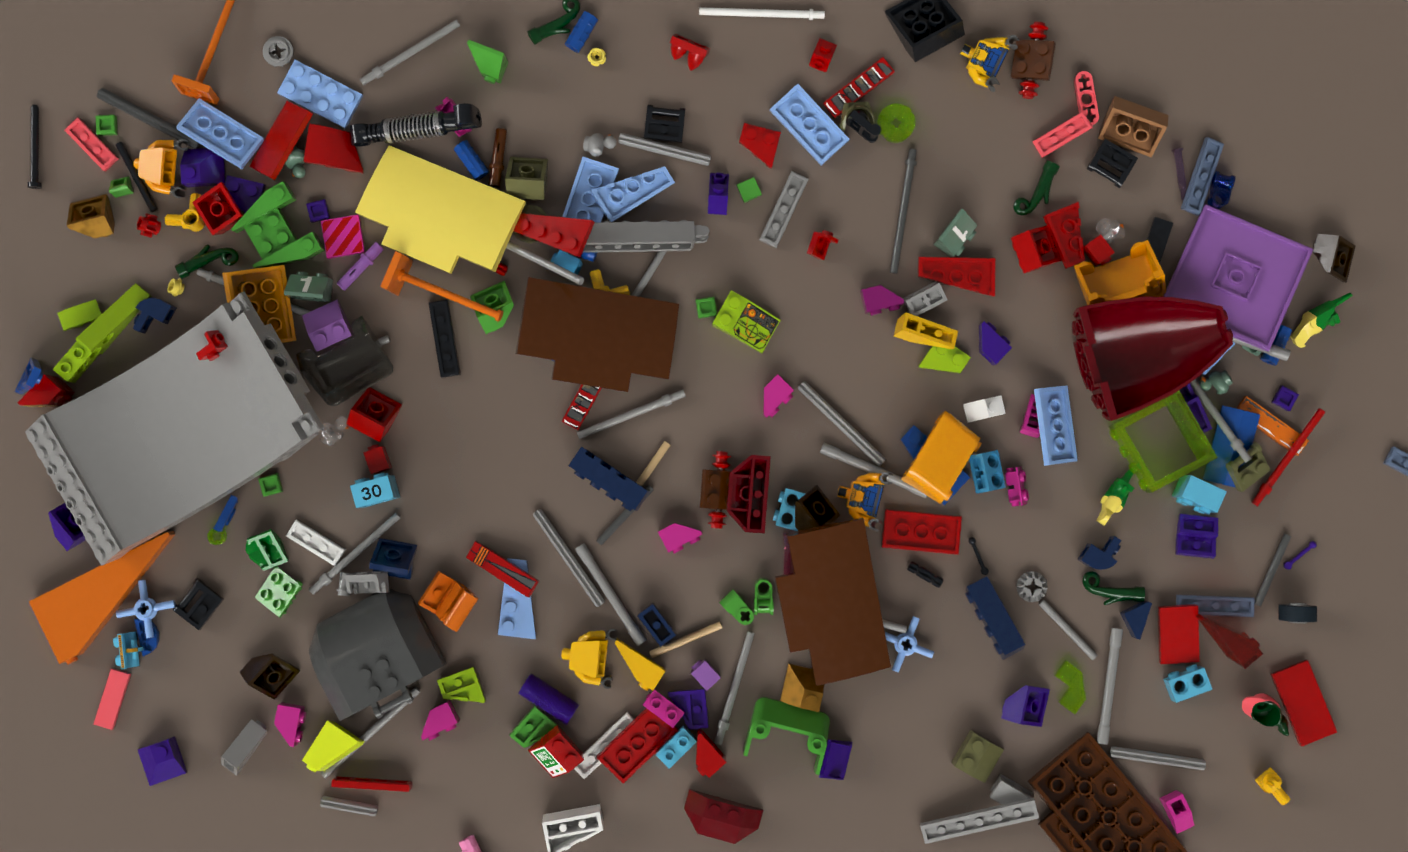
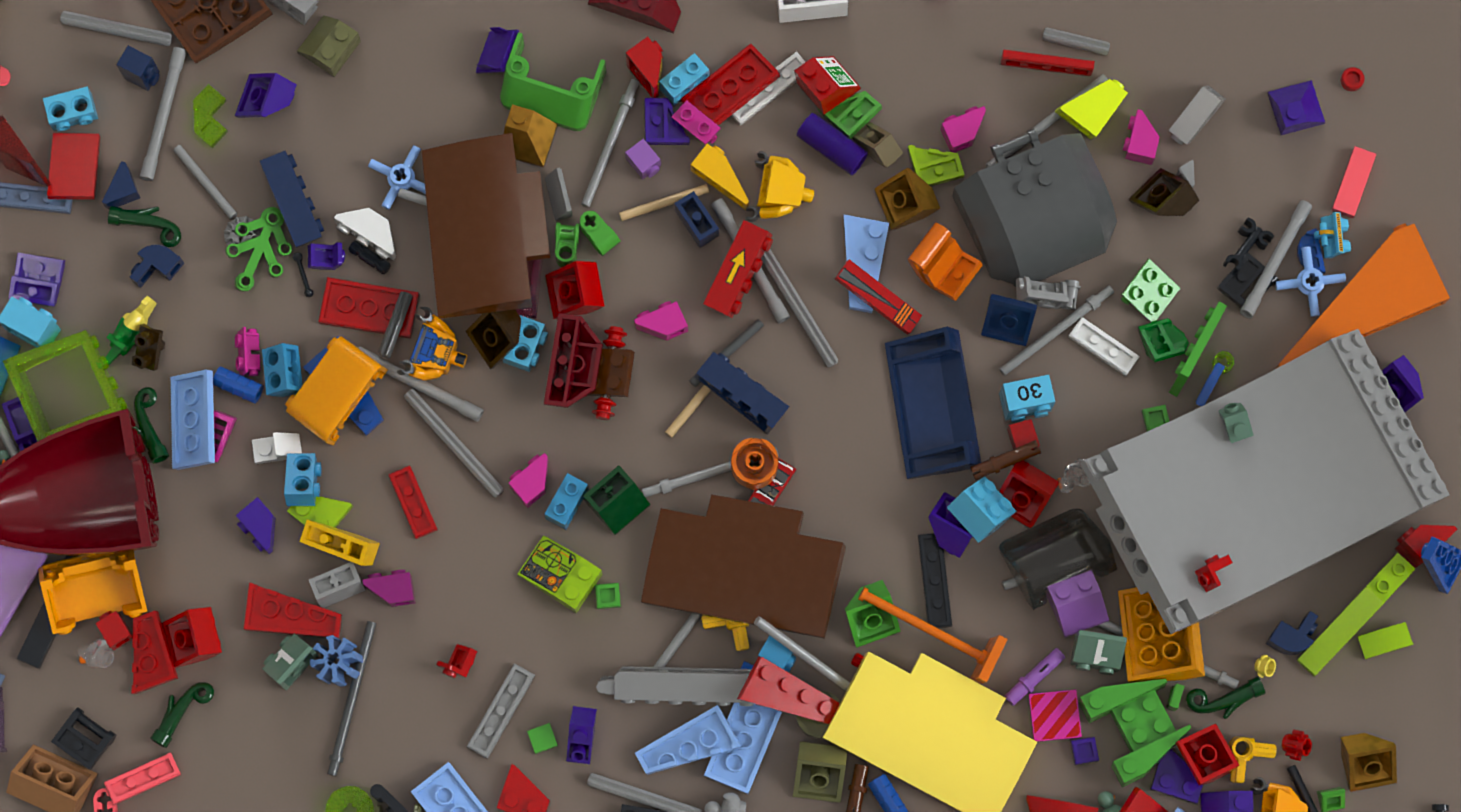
camera: 175 degrees left, 10 degrees down
(115, 789) = (1352, 79): none -> red tile
(189, 589) = (1254, 298): none -> light grey piece
(193, 644) = (1253, 235): none -> black bar
(199, 477) = (1236, 422): none -> sand green bracket
(236, 544) = (1194, 350): none -> bright green wing
(246, 257) = (1175, 697): none -> bright green tile
(250, 694) = (1187, 172): none -> light grey slope
(390, 437) = (1005, 460): none -> reddish brown pin
(407, 395) = (981, 509): none -> medium azure brick
(429, 384) = (948, 530): none -> dark purple slope
(453, 483) = (932, 403): none -> dark blue slope
(484, 655) = (906, 199): none -> pearl gold slope
(510, 701) = (879, 144): none -> dark tan slope
(583, 419) = (754, 450): none -> orange brick
(619, 583) = (738, 269): none -> red brick
(704, 383) = (616, 500): none -> dark green slope
(745, 380) = (566, 501): none -> dark azure brick
(753, 558) = (575, 289): none -> red slope
(773, 639) = (558, 195): none -> light grey slope
(869, 372) = (413, 502): none -> red tile
(898, 517) = (395, 324): none -> dark grey axle
(922, 230) = (331, 669): none -> medium blue gear
(927, 596) = (369, 229): none -> white slope
(961, 571) = (325, 256): none -> dark purple bracket
(965, 381) = (297, 479): none -> dark azure brick
(1016, 577) = (260, 245): none -> bright green plant
(1022, 458) = (238, 384): none -> blue axle
(1092, 414) = (156, 451): none -> dark green plant
(1098, 482) = (148, 349): none -> dark brown hips
(1135, 721) = (138, 68): none -> dark blue brick

